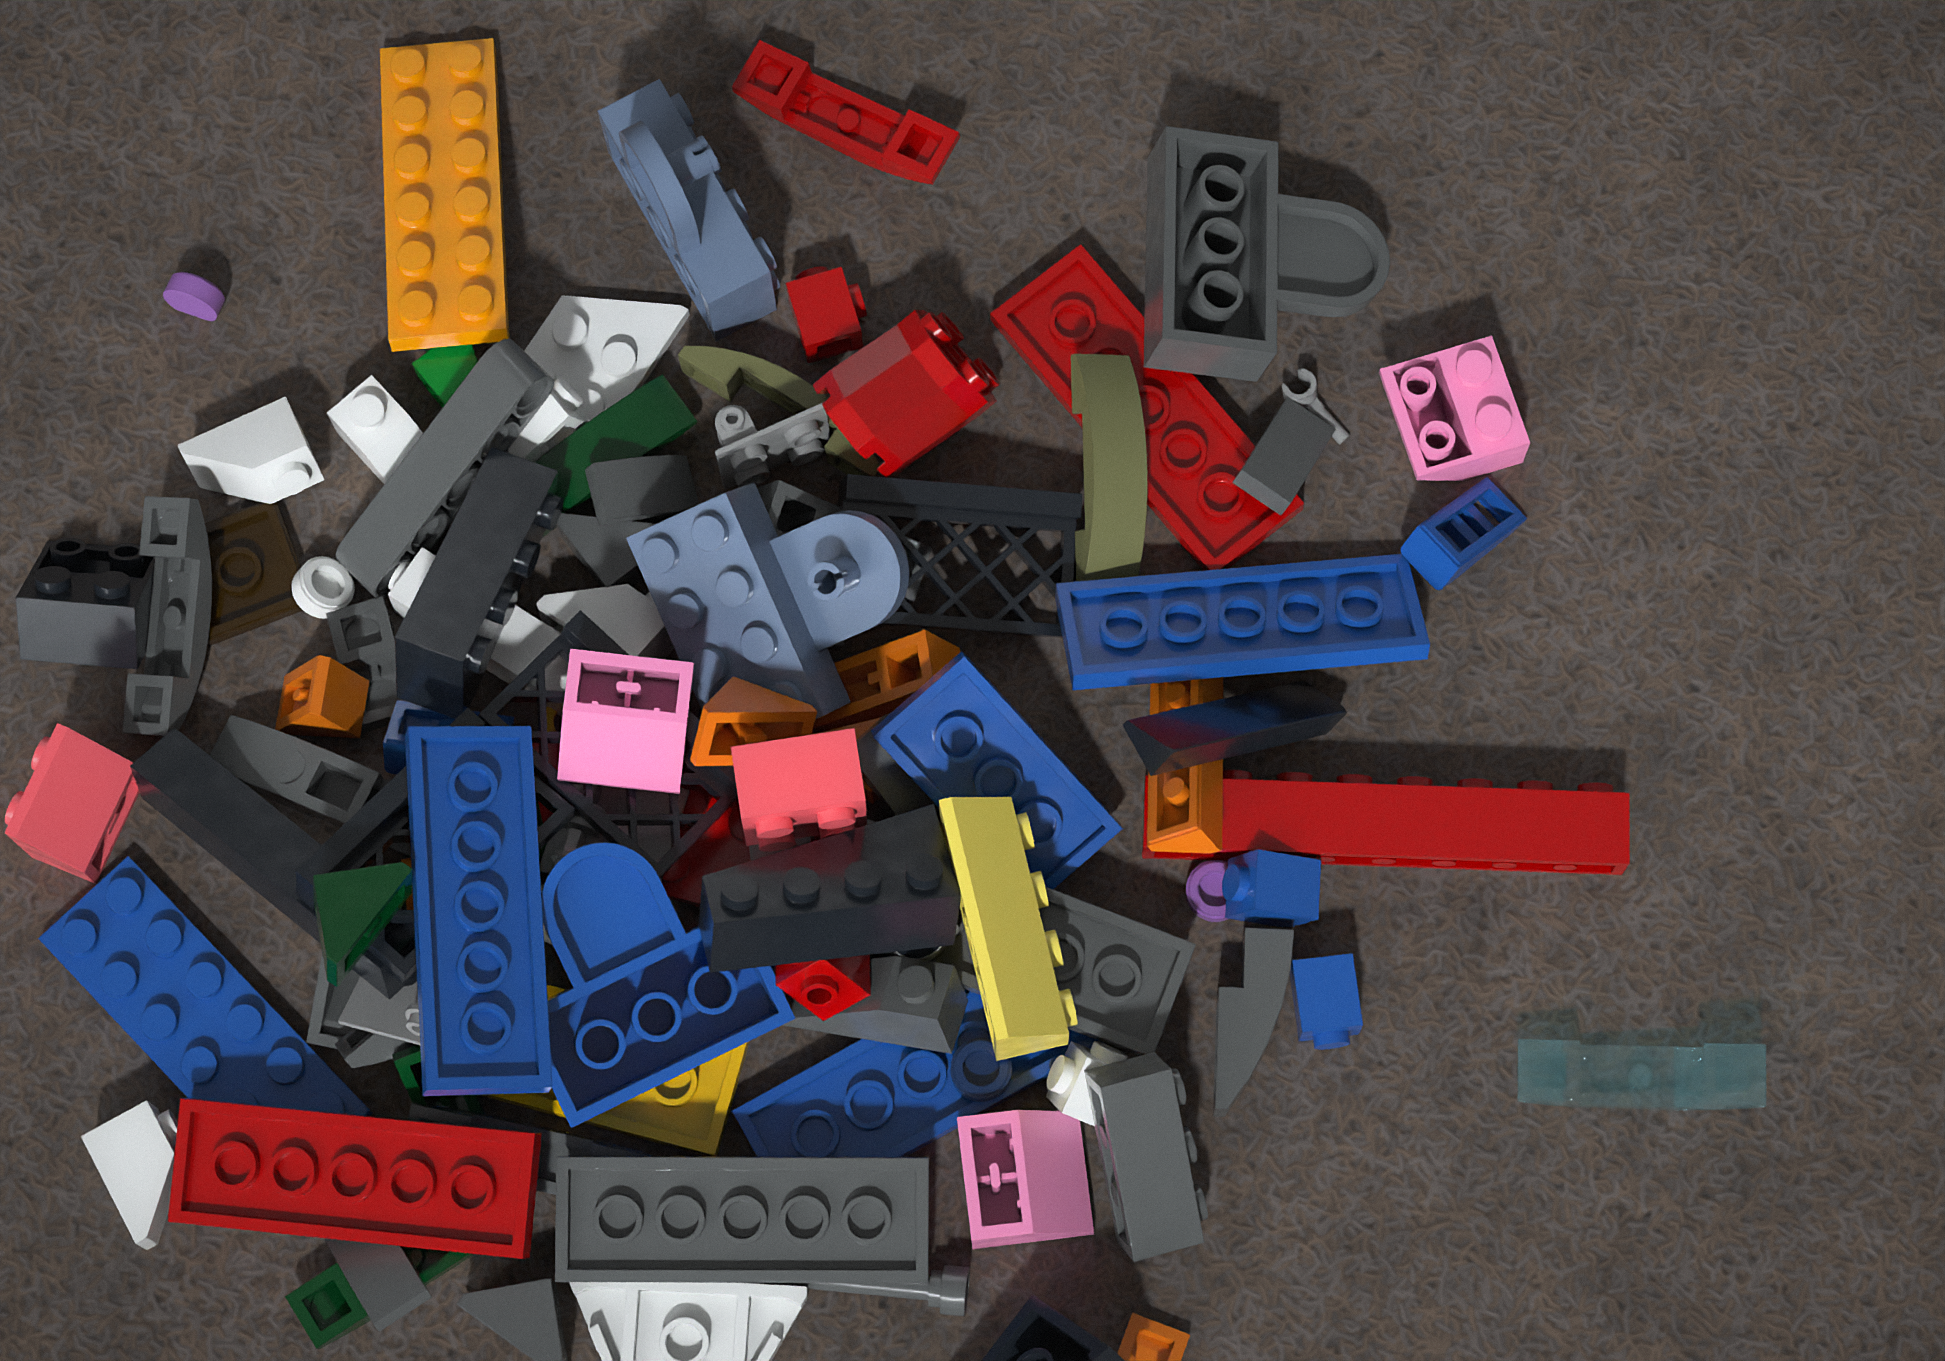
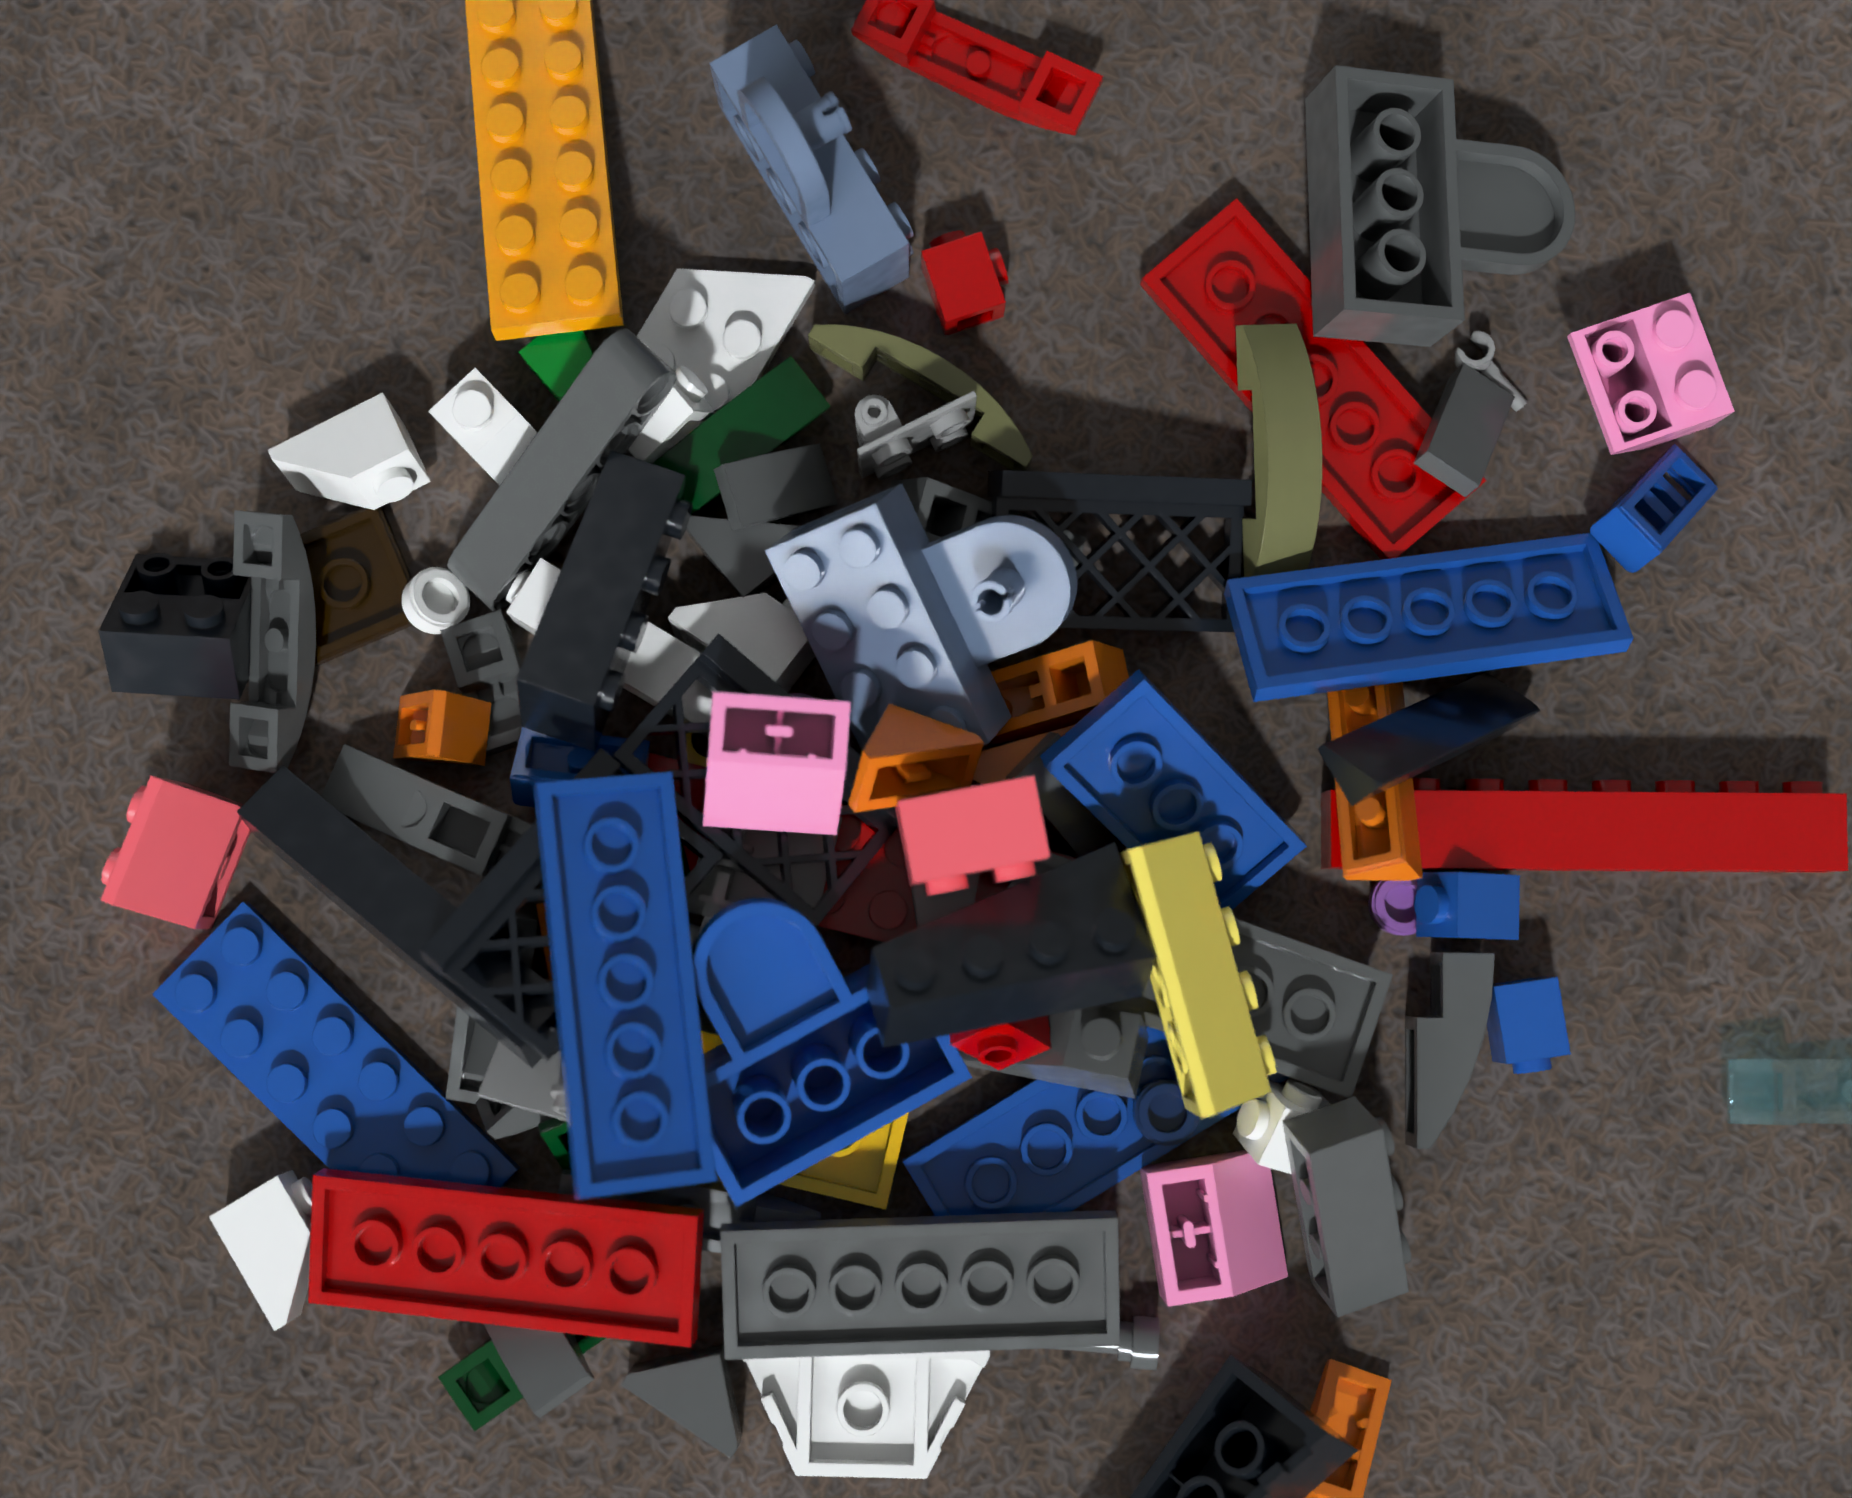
camera: 10 degrees left, 10 degrees up
(194, 295) = (277, 279): medium lavender tile -> none
(354, 910) = (487, 995): dark green slope -> none
(907, 391) = (1060, 371): red brick -> none

